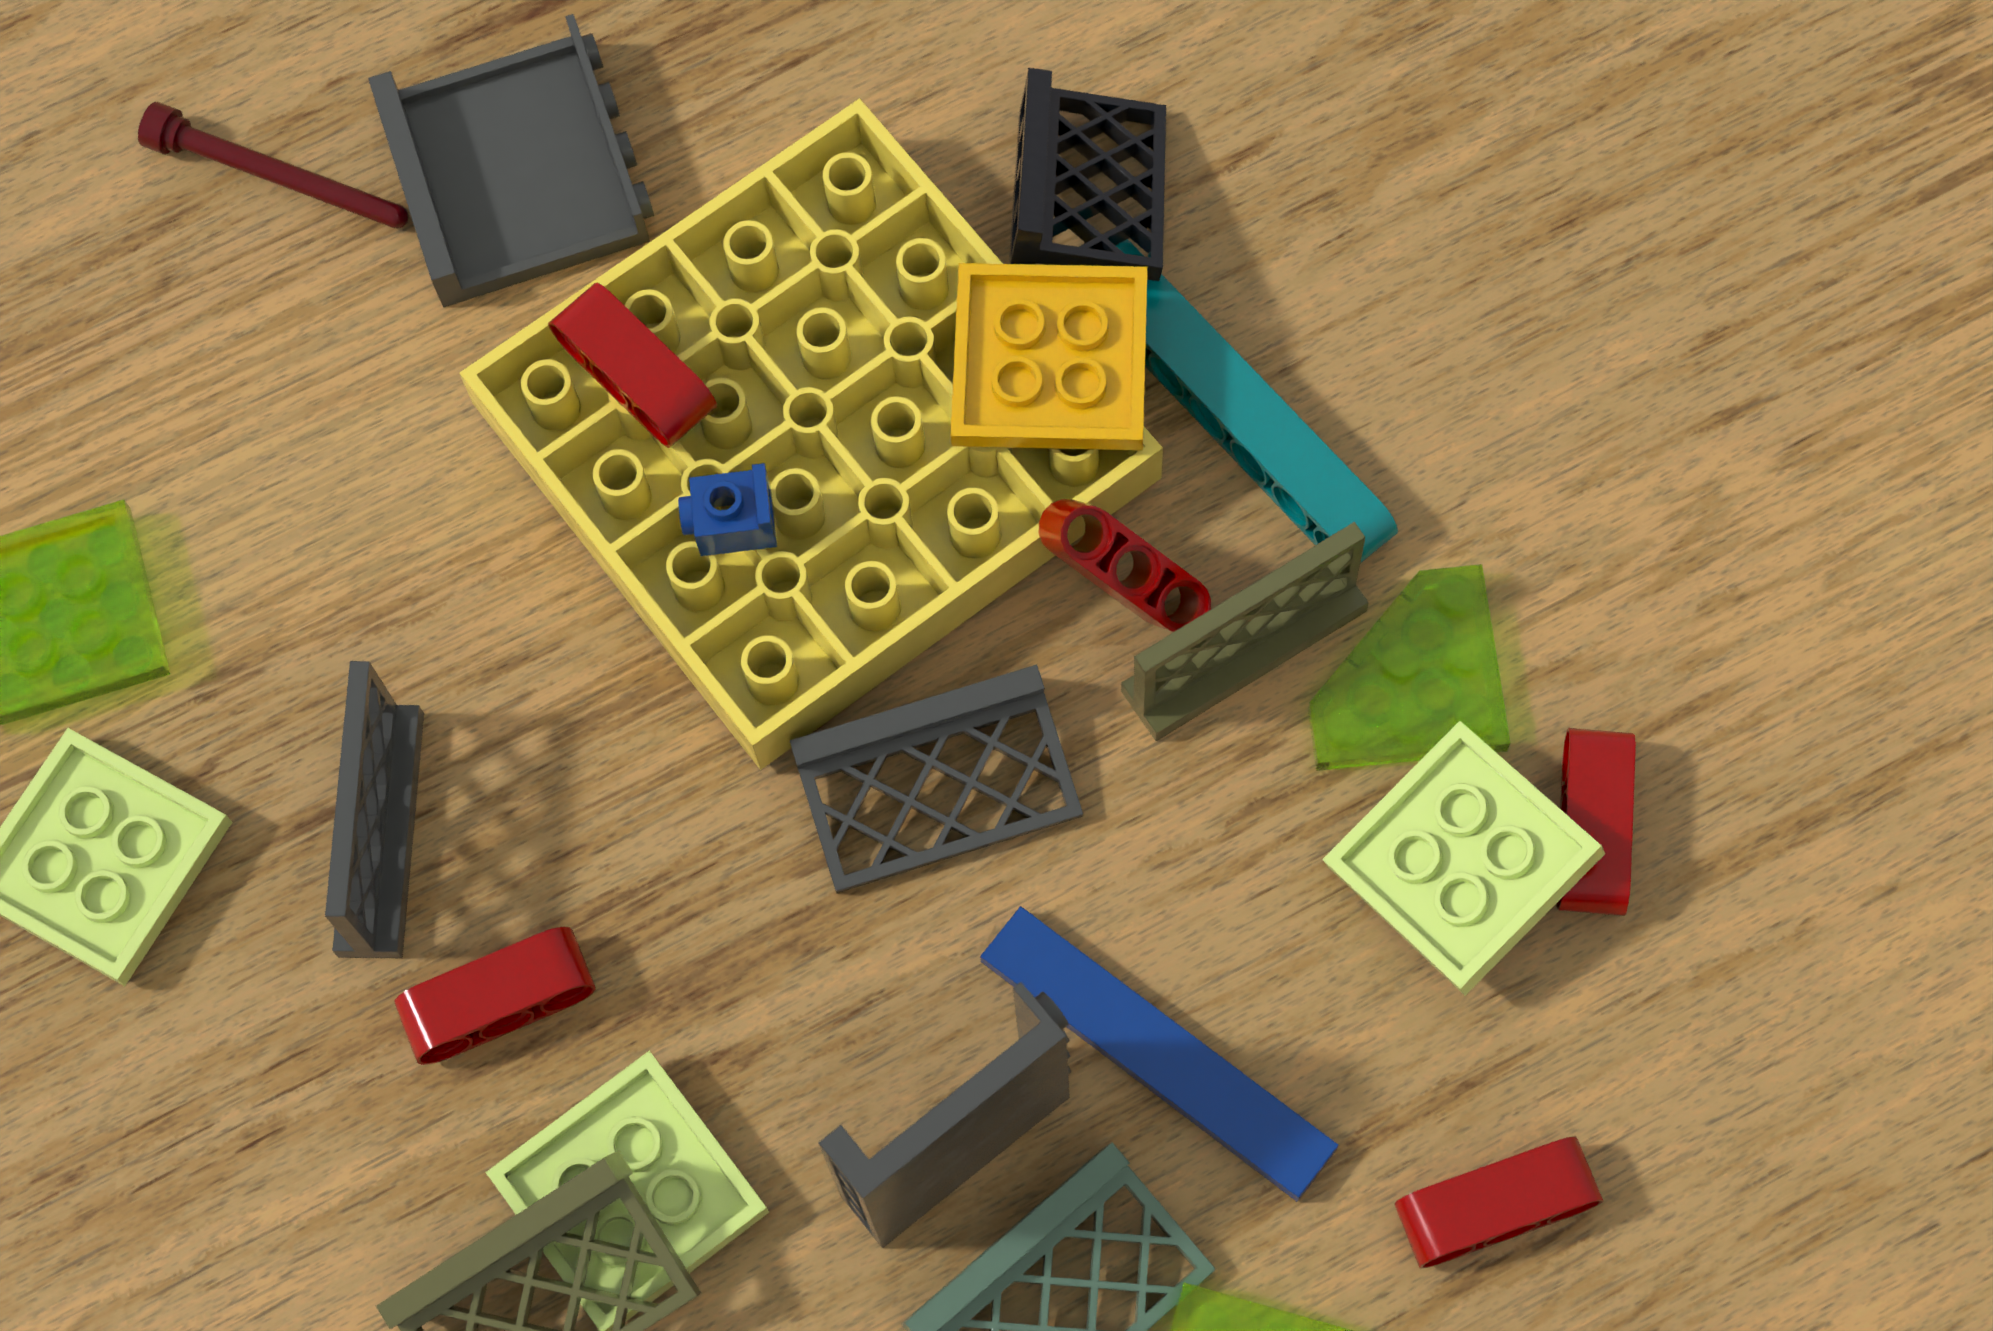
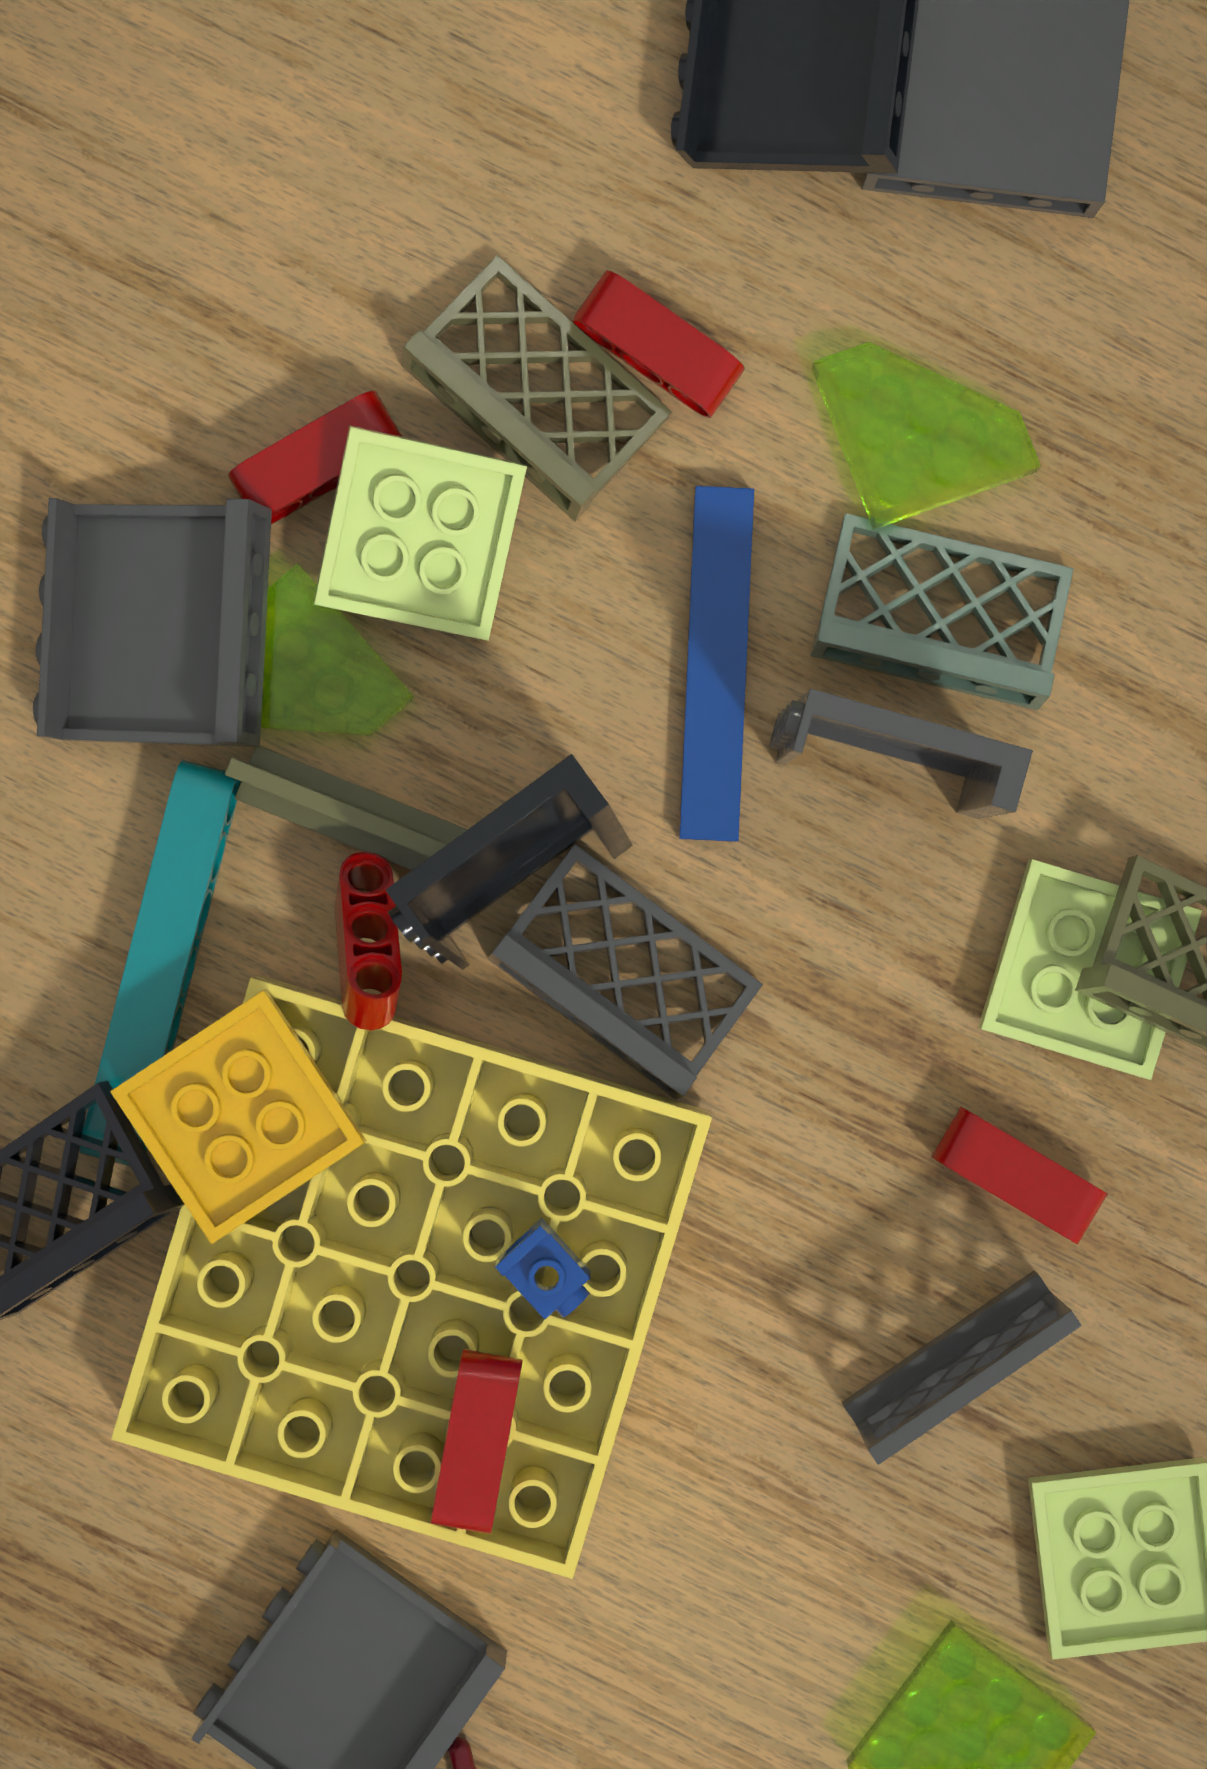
camera: 125 degrees left, 20 degrees up
(1111, 627) = (501, 855): none -> black panel
(1519, 1007) = (499, 422): none -> olive fence
(1538, 580) = (153, 623): none -> dark grey panel

